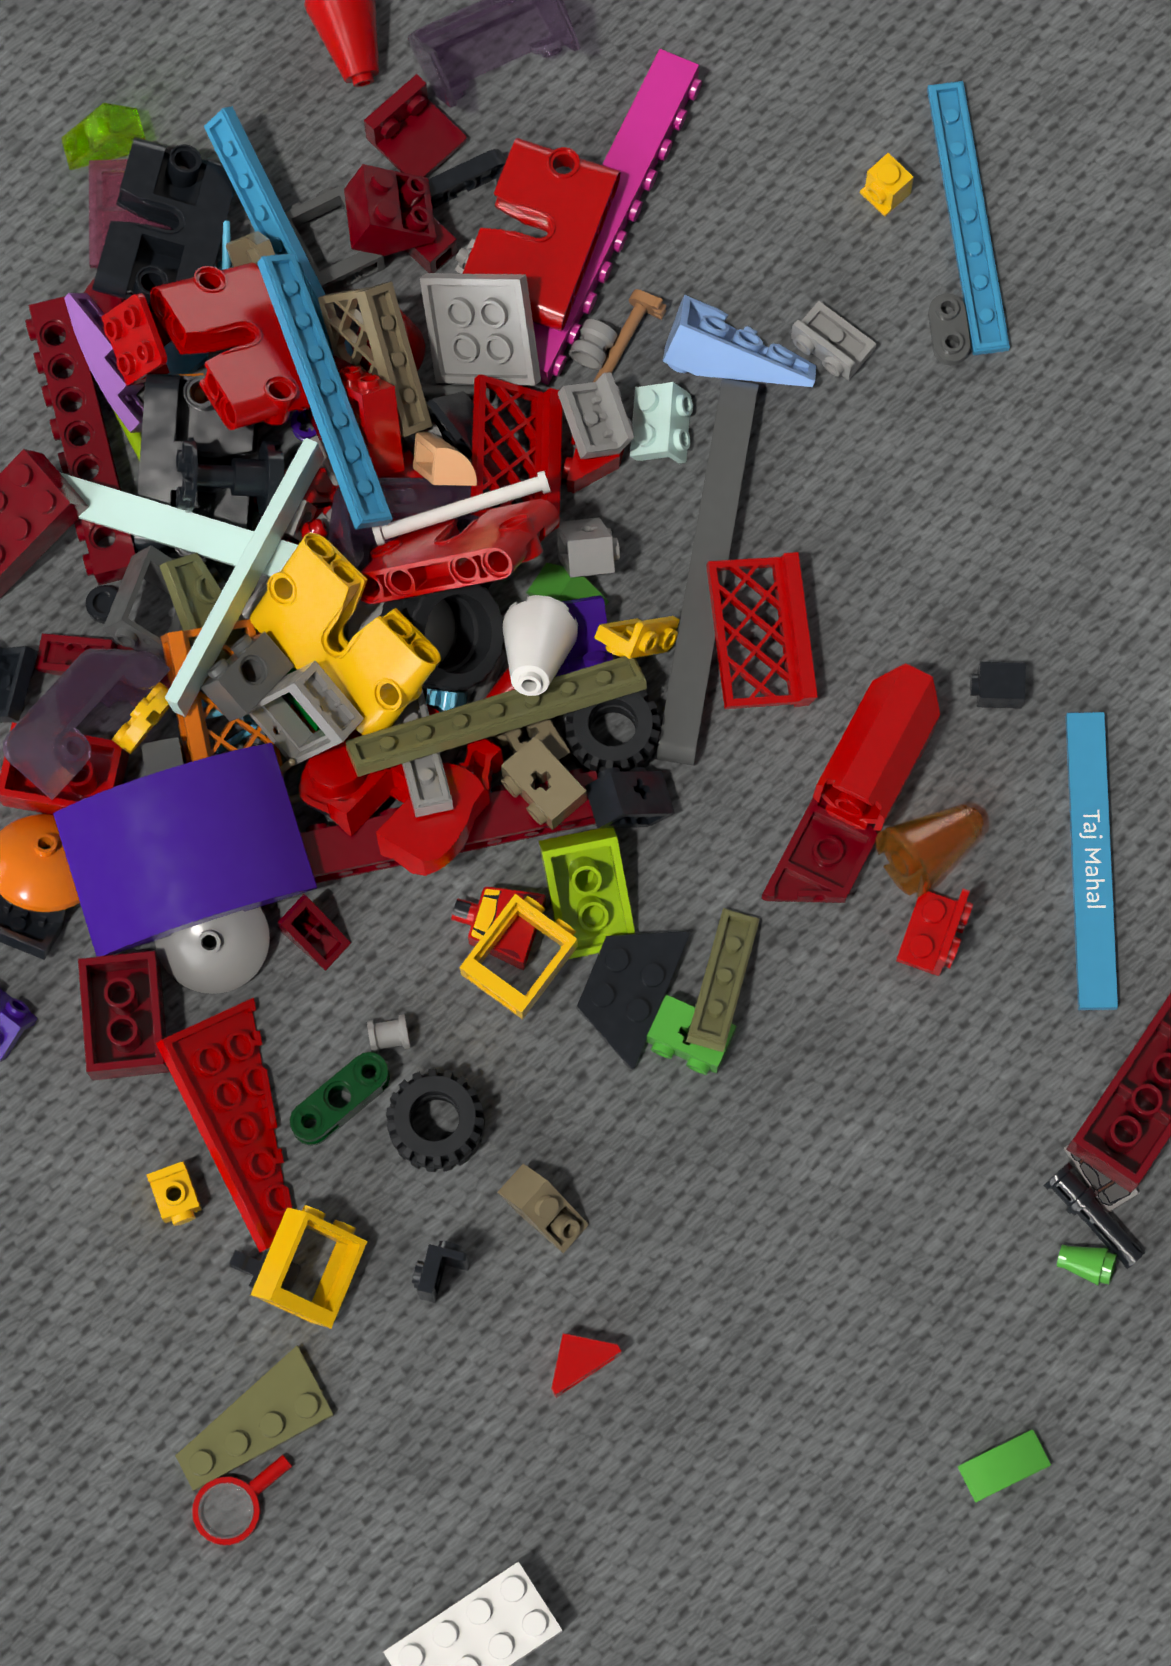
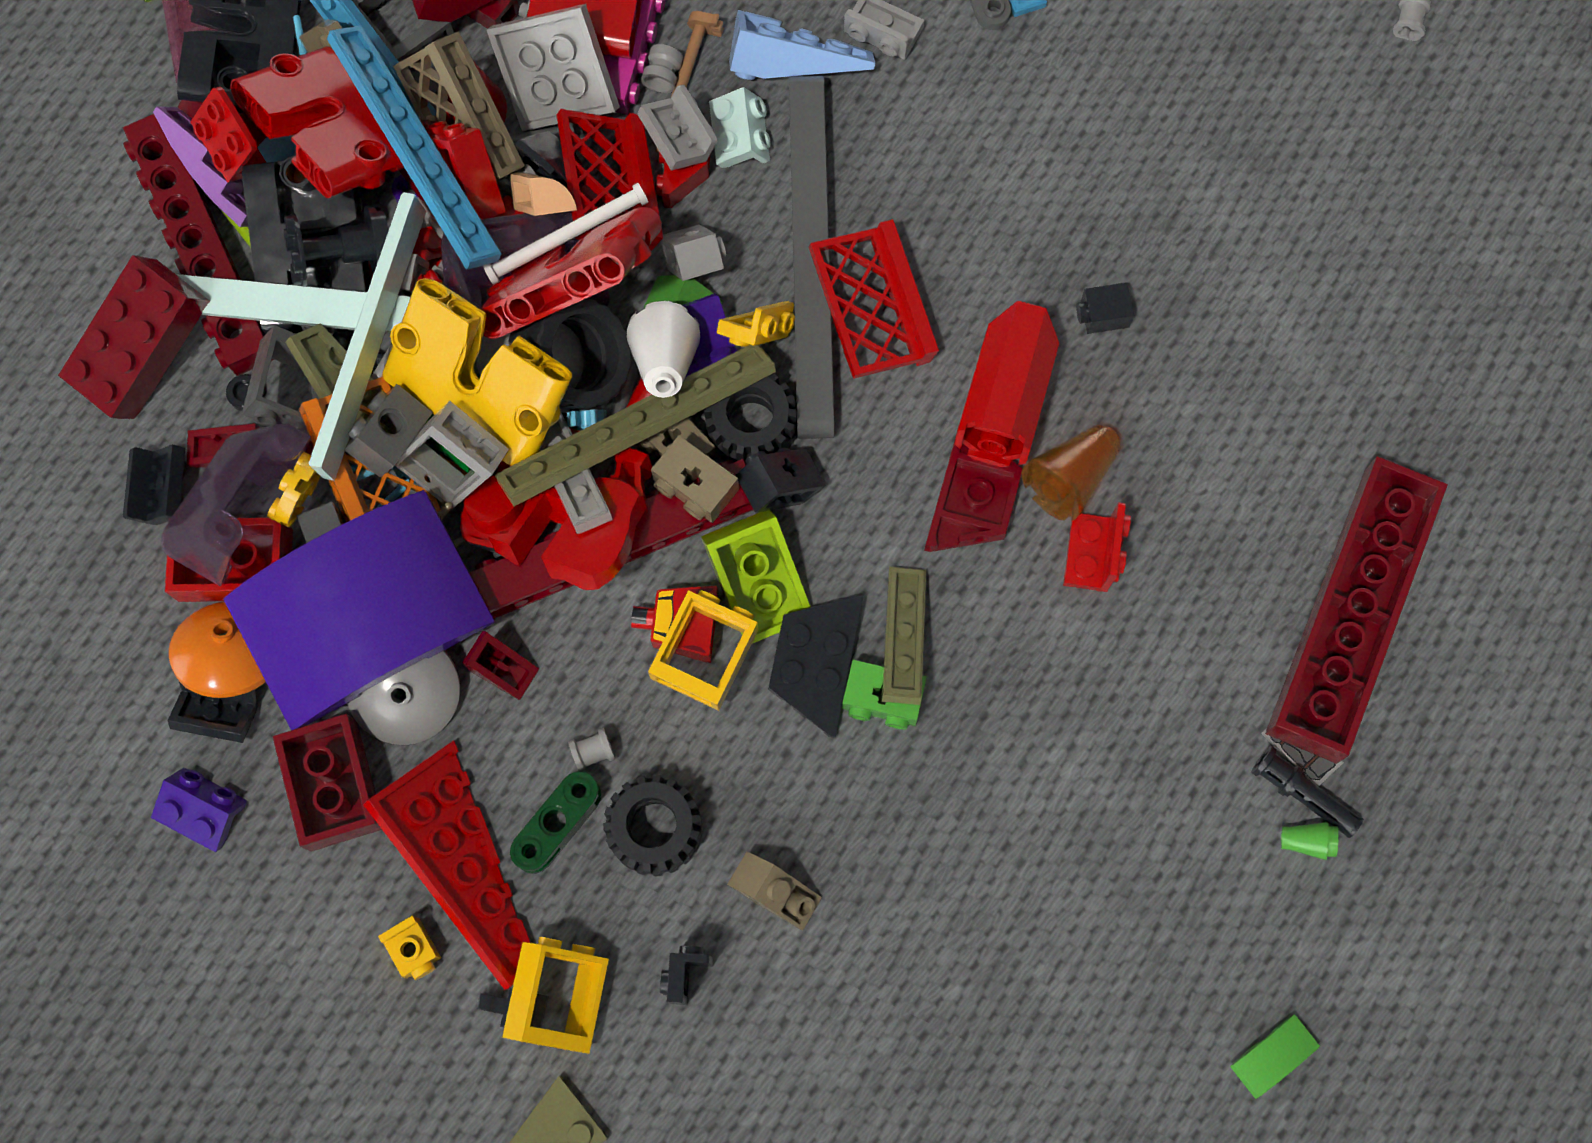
camera: 10 degrees left, 0 degrees up
(580, 1359) = (839, 1034): red slope -> none
(1091, 861) = (1227, 457): dark azure tile -> none

